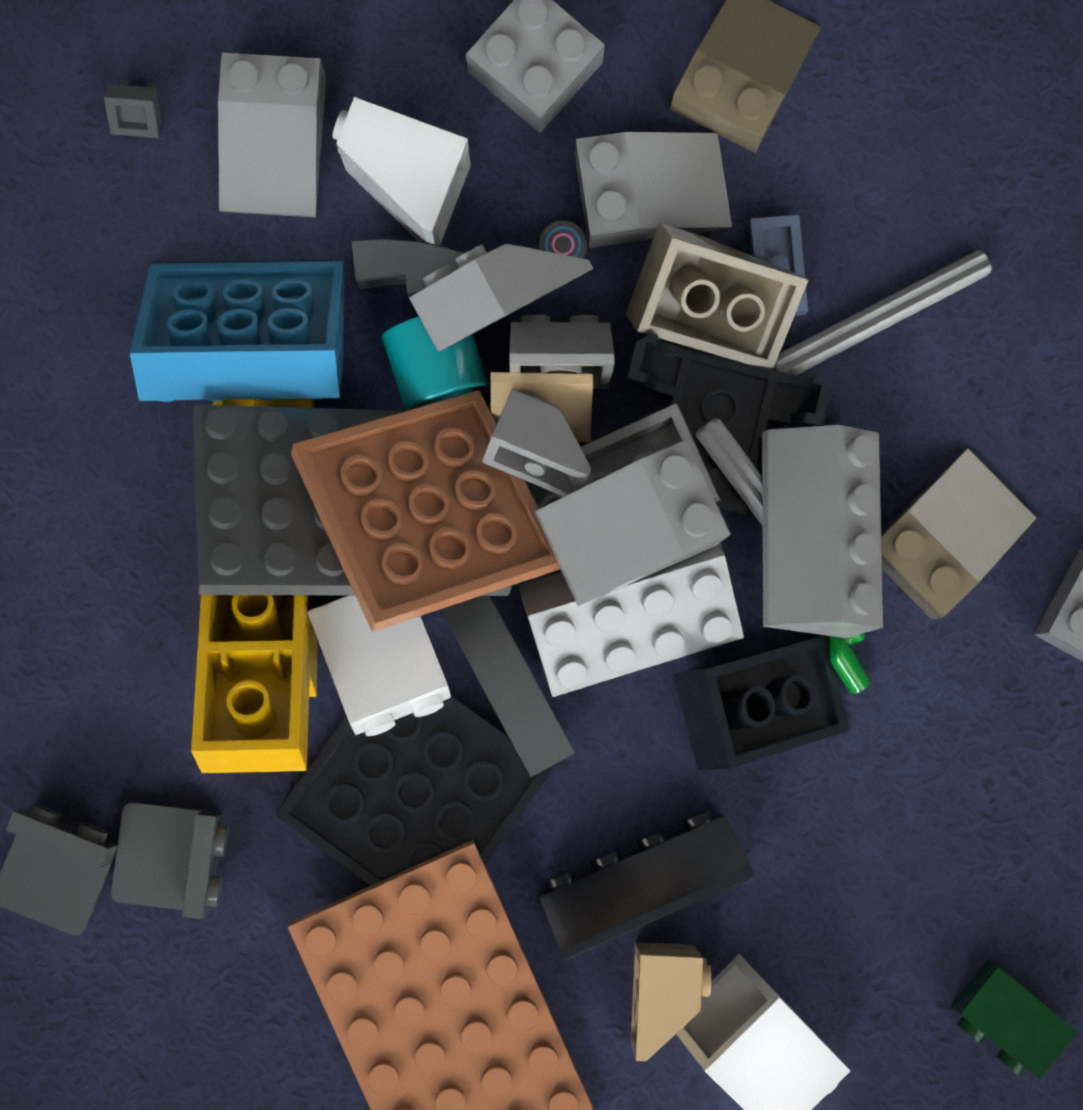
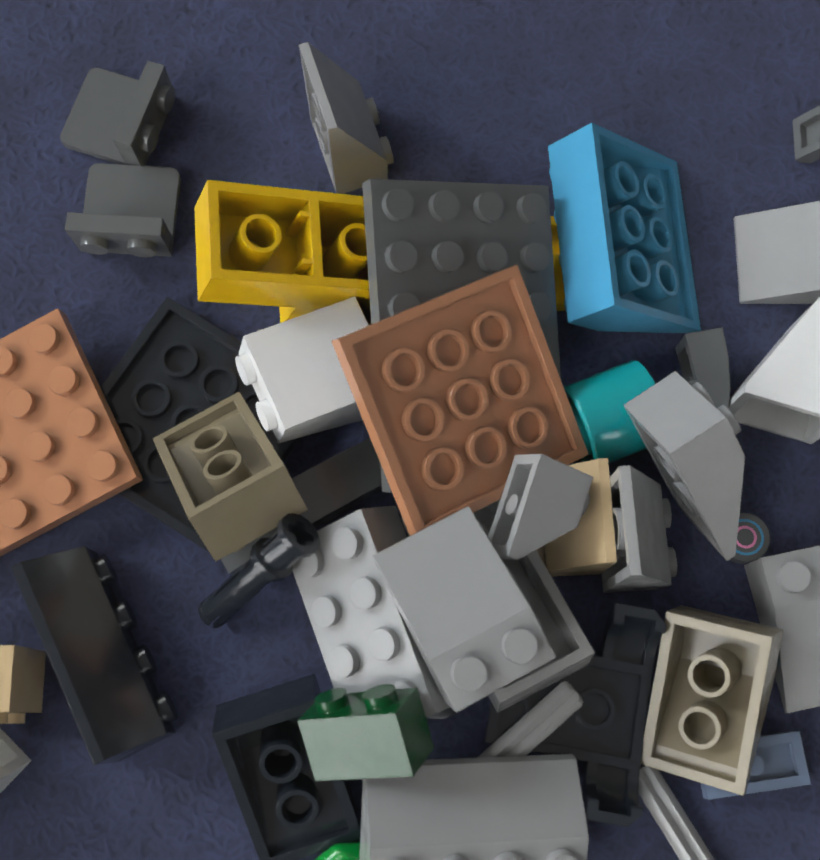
camera: 90 degrees right, 10 degrees down
(95, 616) = (343, 123): none -> light grey slope
(477, 750) = (228, 476): none -> dark tan slope
(569, 709) = (269, 562): none -> black pin
(739, 621) = (366, 733): none -> brick

